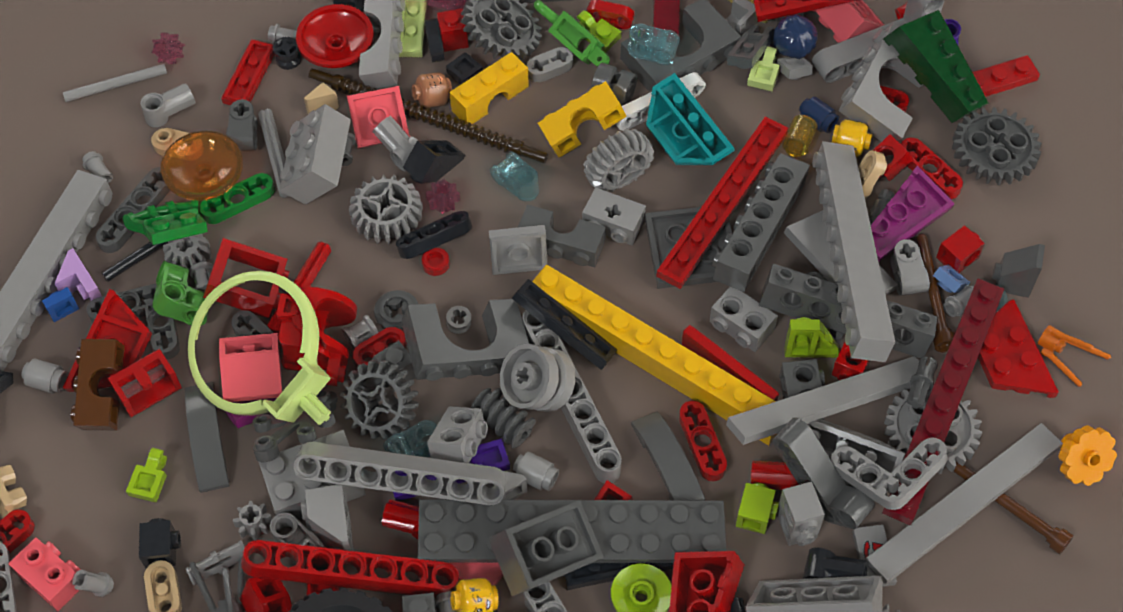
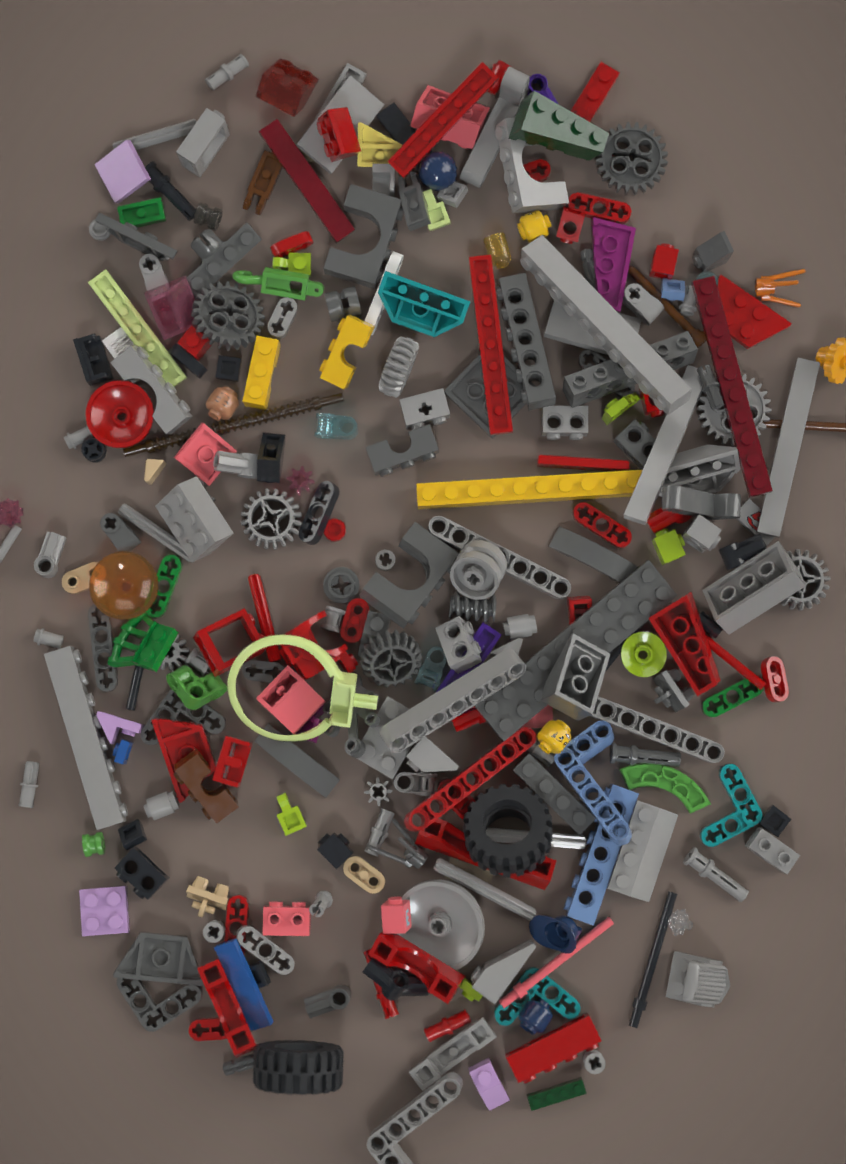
camera: 40 degrees left, 25 degrees up
(249, 72) = (80, 485): red tile -> none
(518, 249) = (388, 485): light grey tile -> none
(564, 324) = (460, 516): black tile -> none
(655, 45) = (354, 256): clear light blue piece -> none
(820, 112) = (497, 222): dark blue brick -> none
(871, 169) = (569, 247): tan plate -> none
(888, 481) = (740, 479): light grey beam -> none

